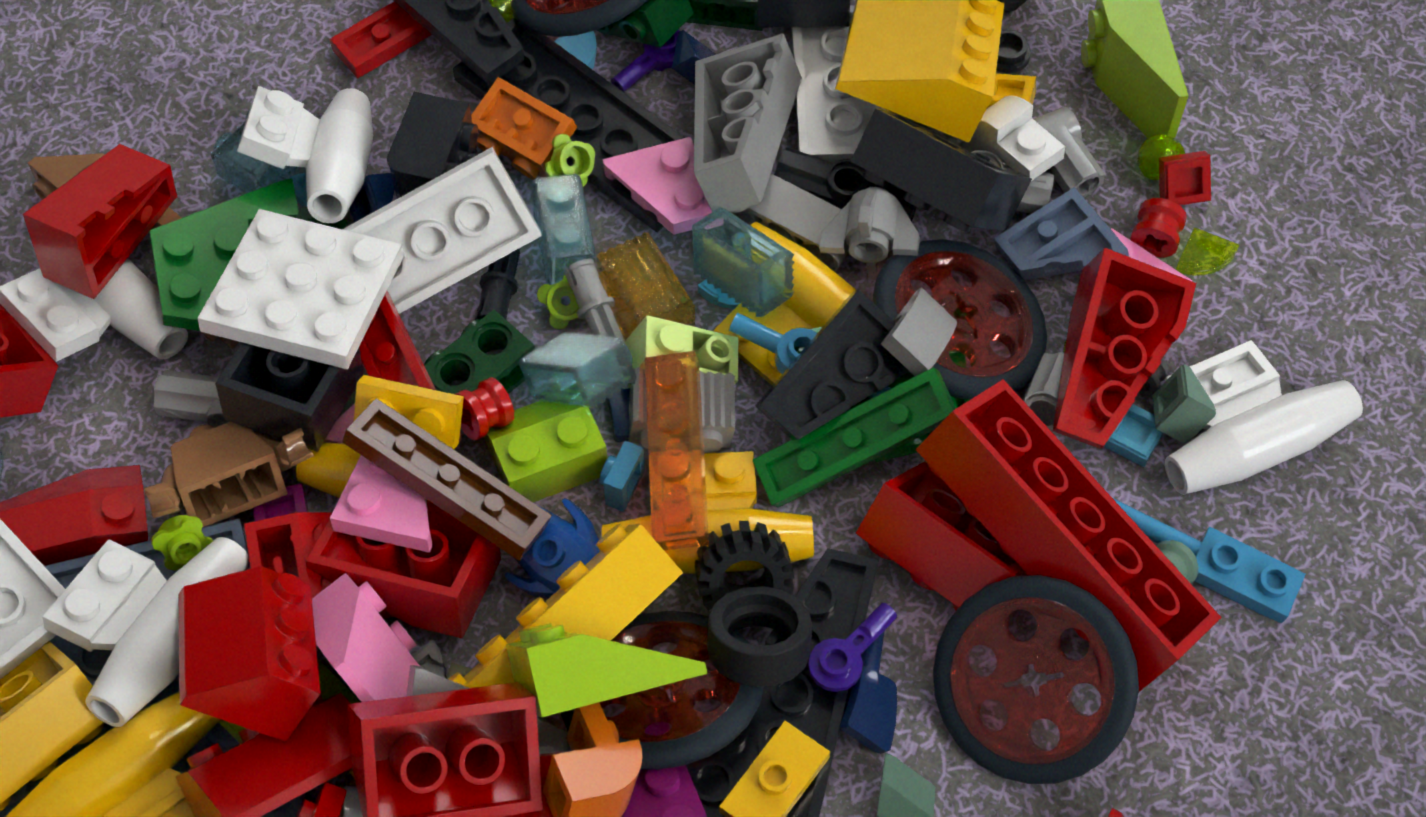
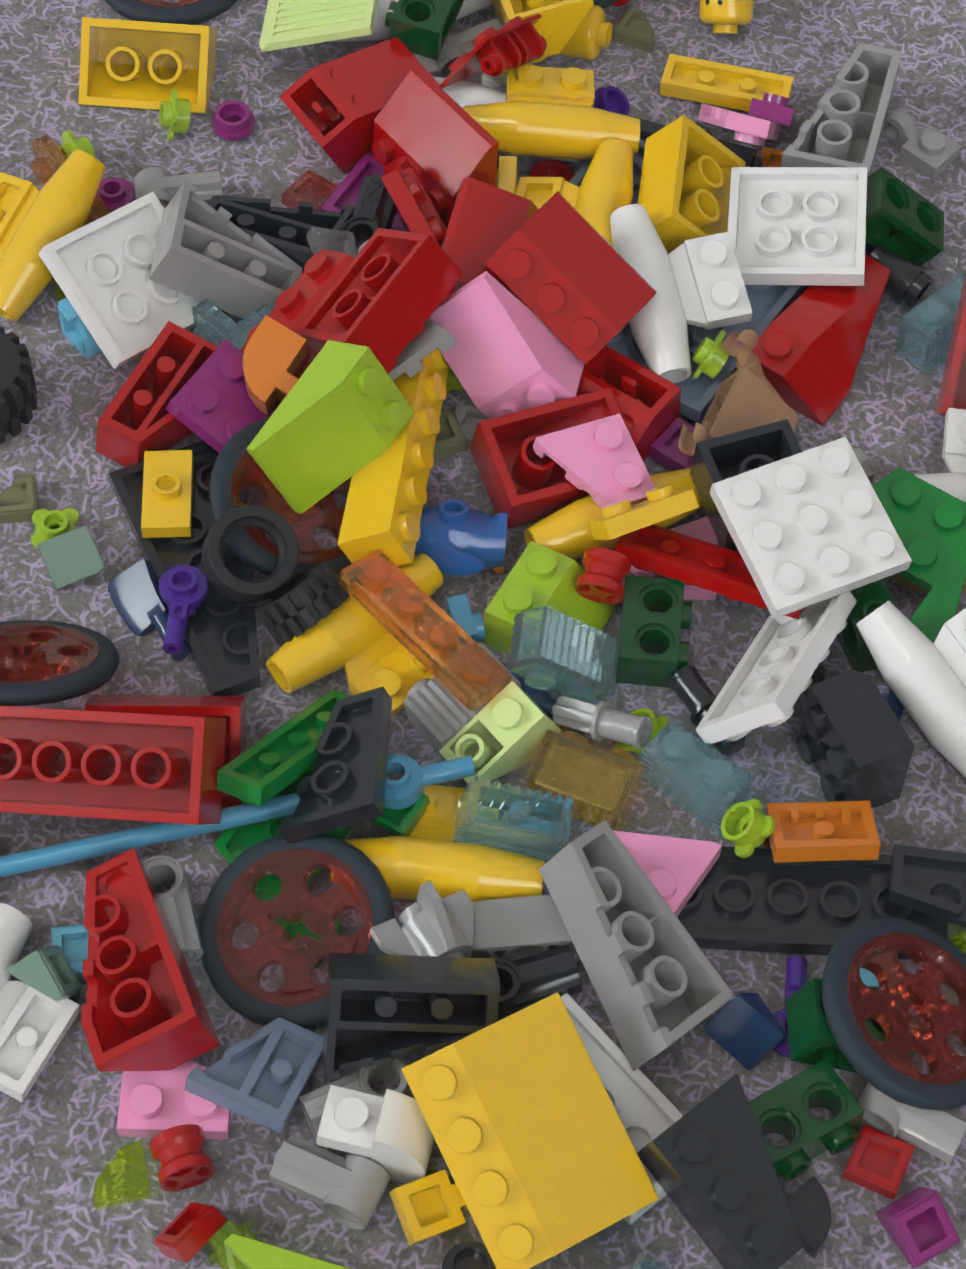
camera: 140 degrees right, 5 degrees down
(447, 478) = (562, 480): plate -> none
(920, 333) = (301, 840): light grey slope -> none

